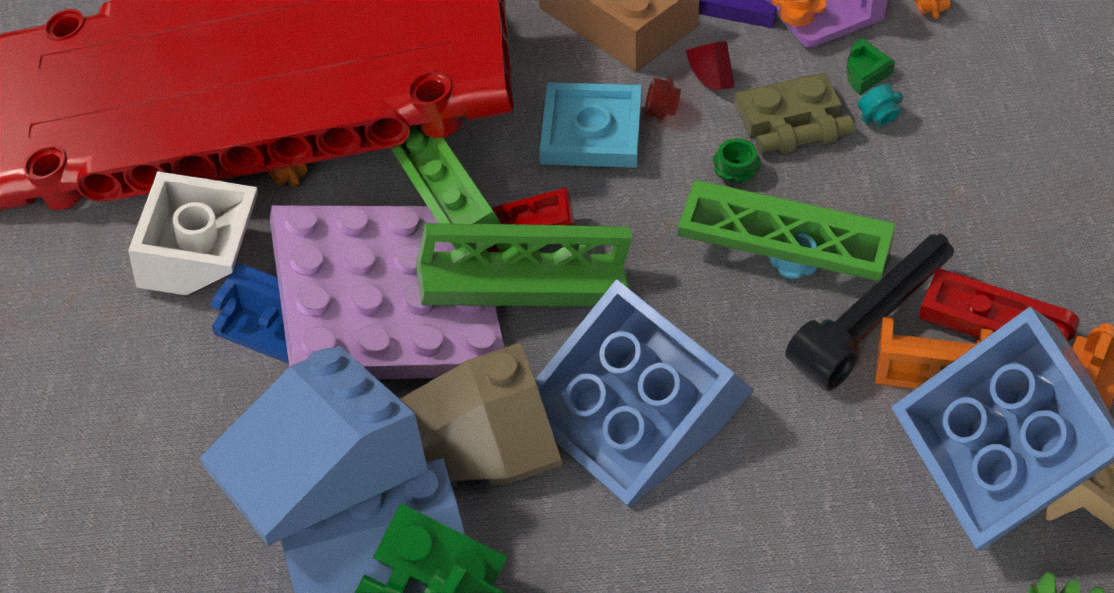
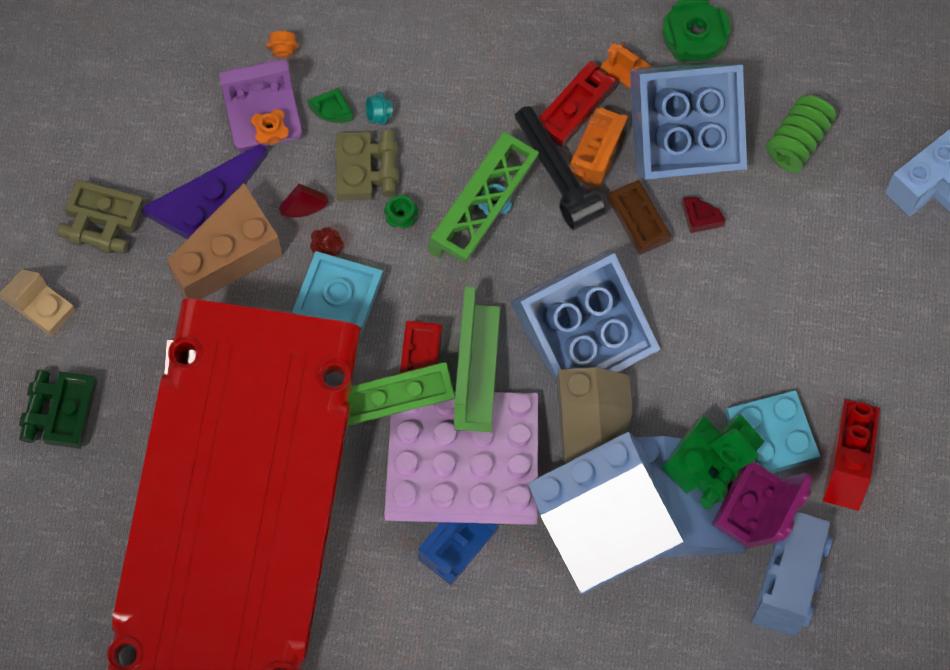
camera: 80 degrees left, 15 degrees up
(189, 232) = (377, 577): white slope -> none
(836, 431) = (639, 217): none -> reddish brown plate
(879, 518) = (701, 215): none -> dark red tile

